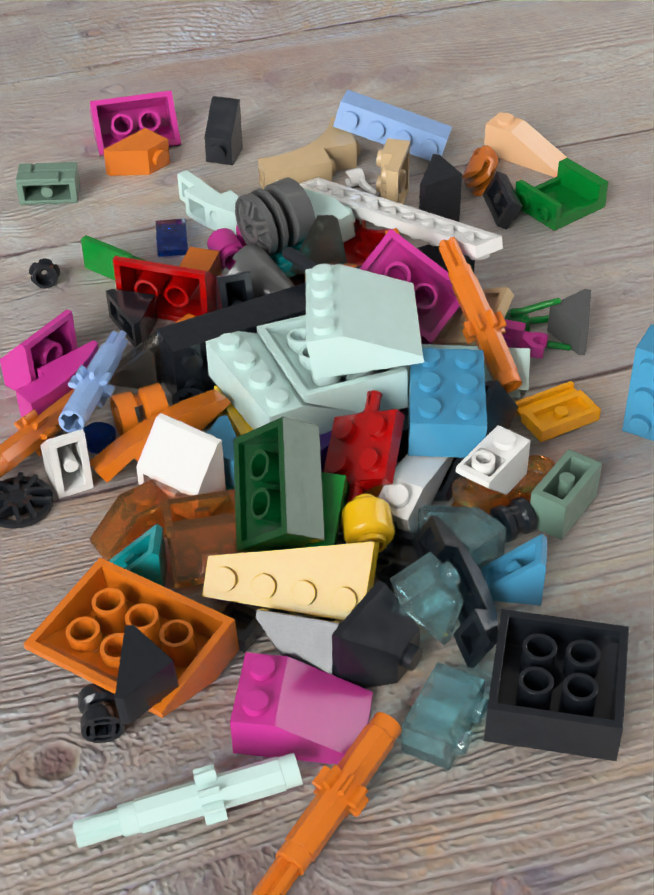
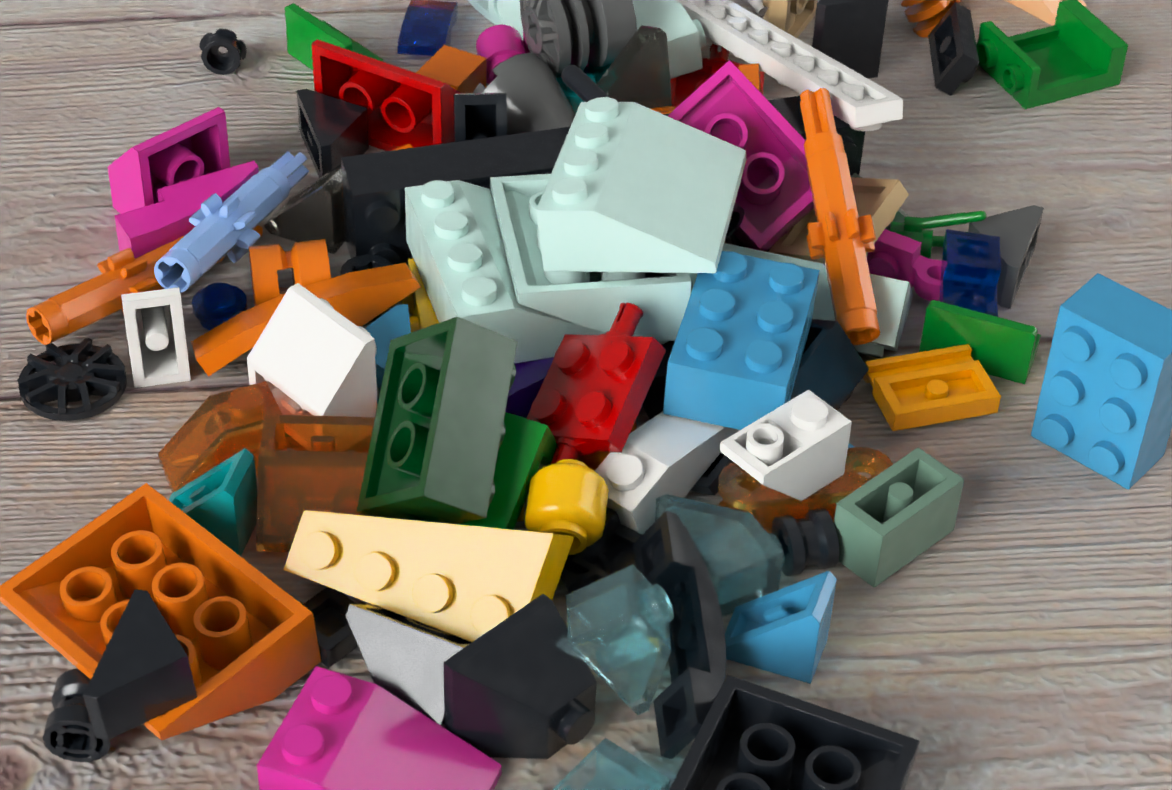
camera: 10 degrees right, 0 degrees up
(561, 343) = (970, 271): none -> clear blue slope
(589, 376) = (999, 344): none -> green panel

